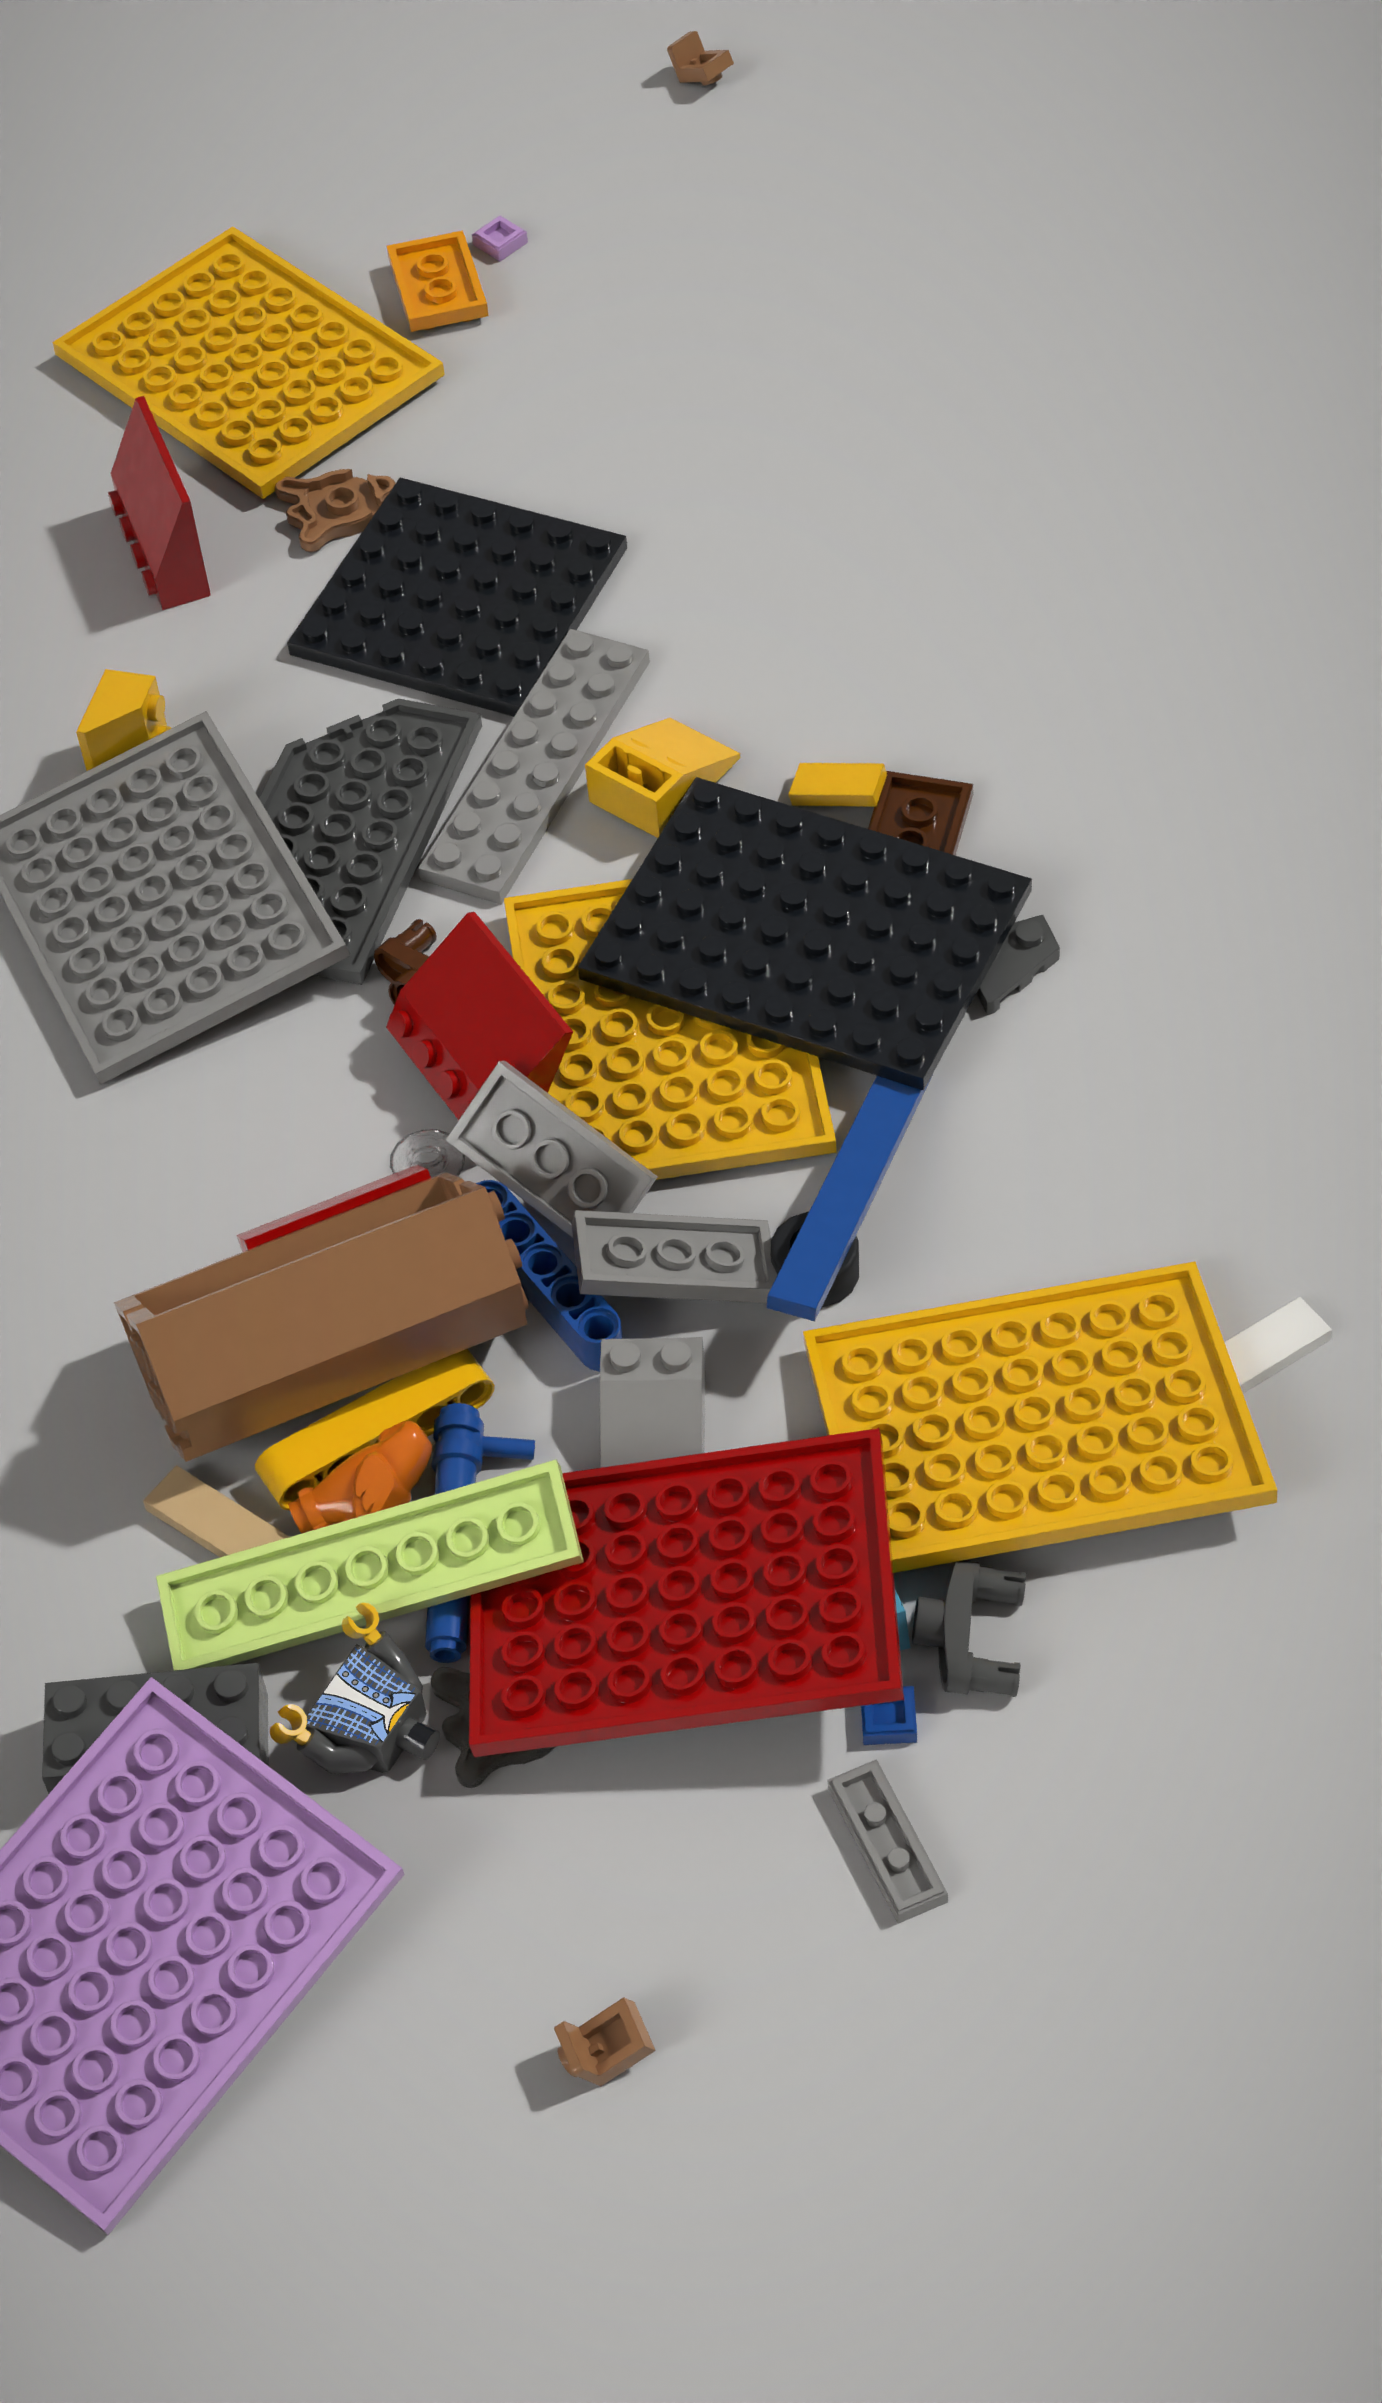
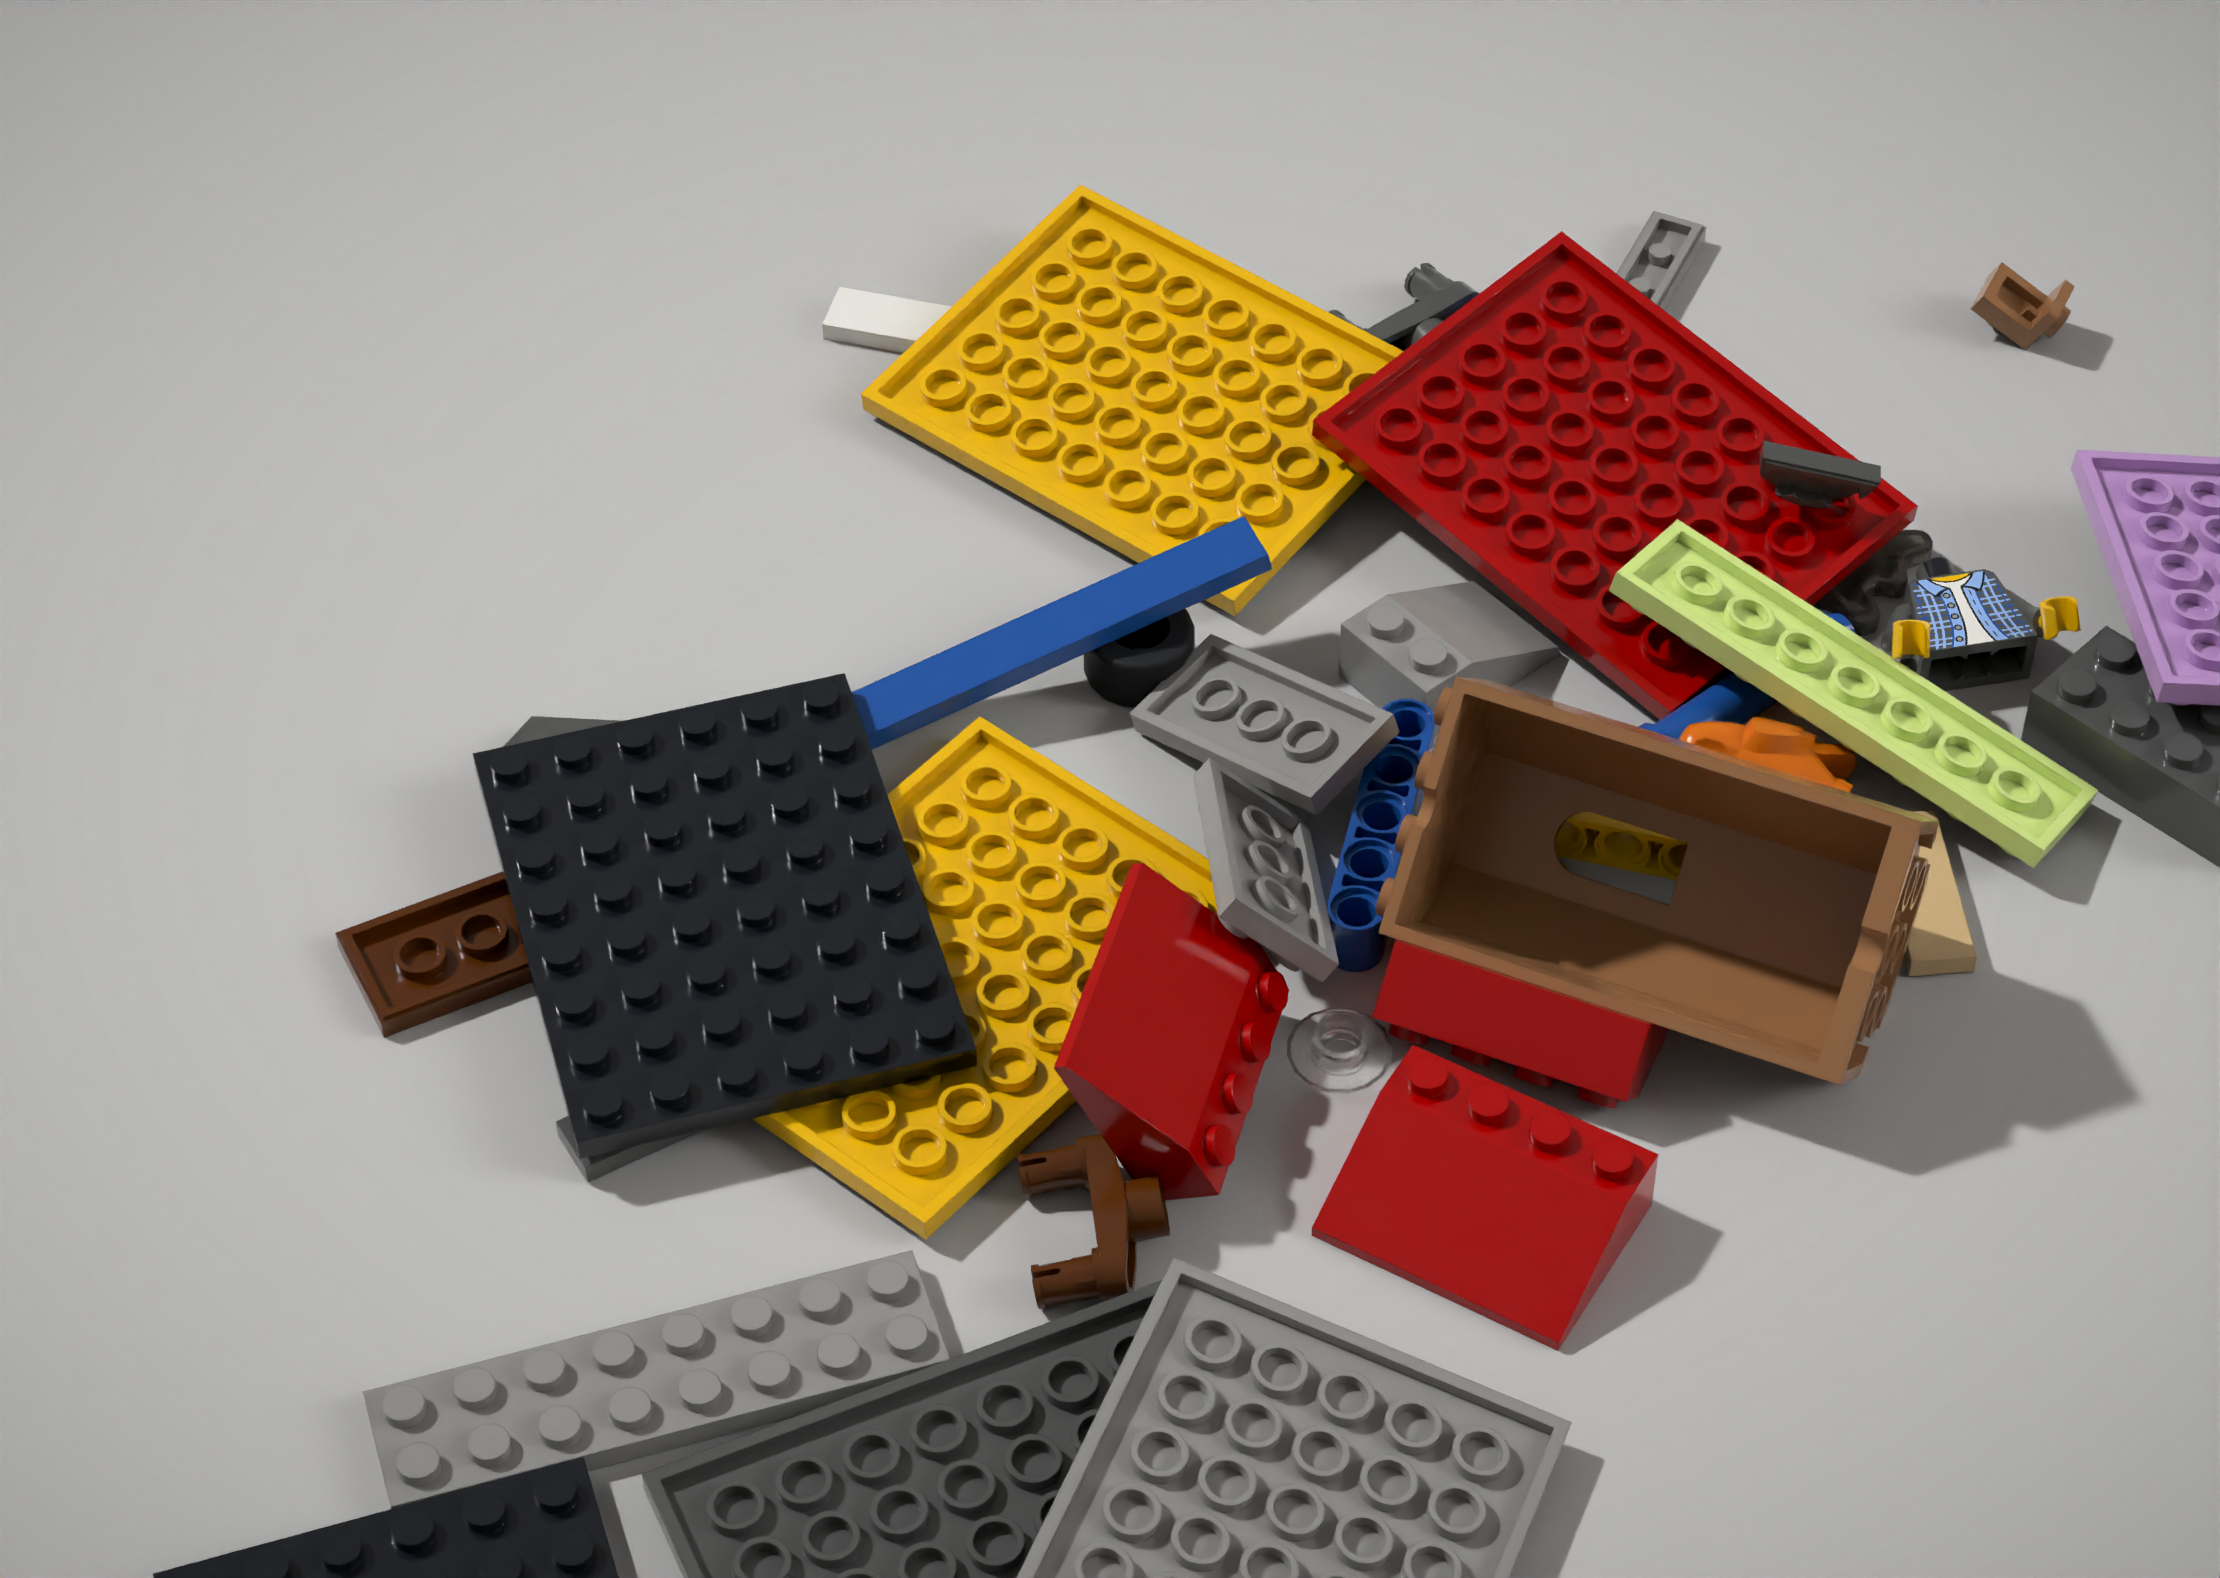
camera: 135 degrees left, 5 degrees down
(261, 1150) = (1487, 1197): none -> red slope
(533, 1662) = (1815, 477): none -> dark grey tile
(651, 769) = (577, 1214): yellow slope -> none
(838, 784) = (446, 1047): yellow tile -> none

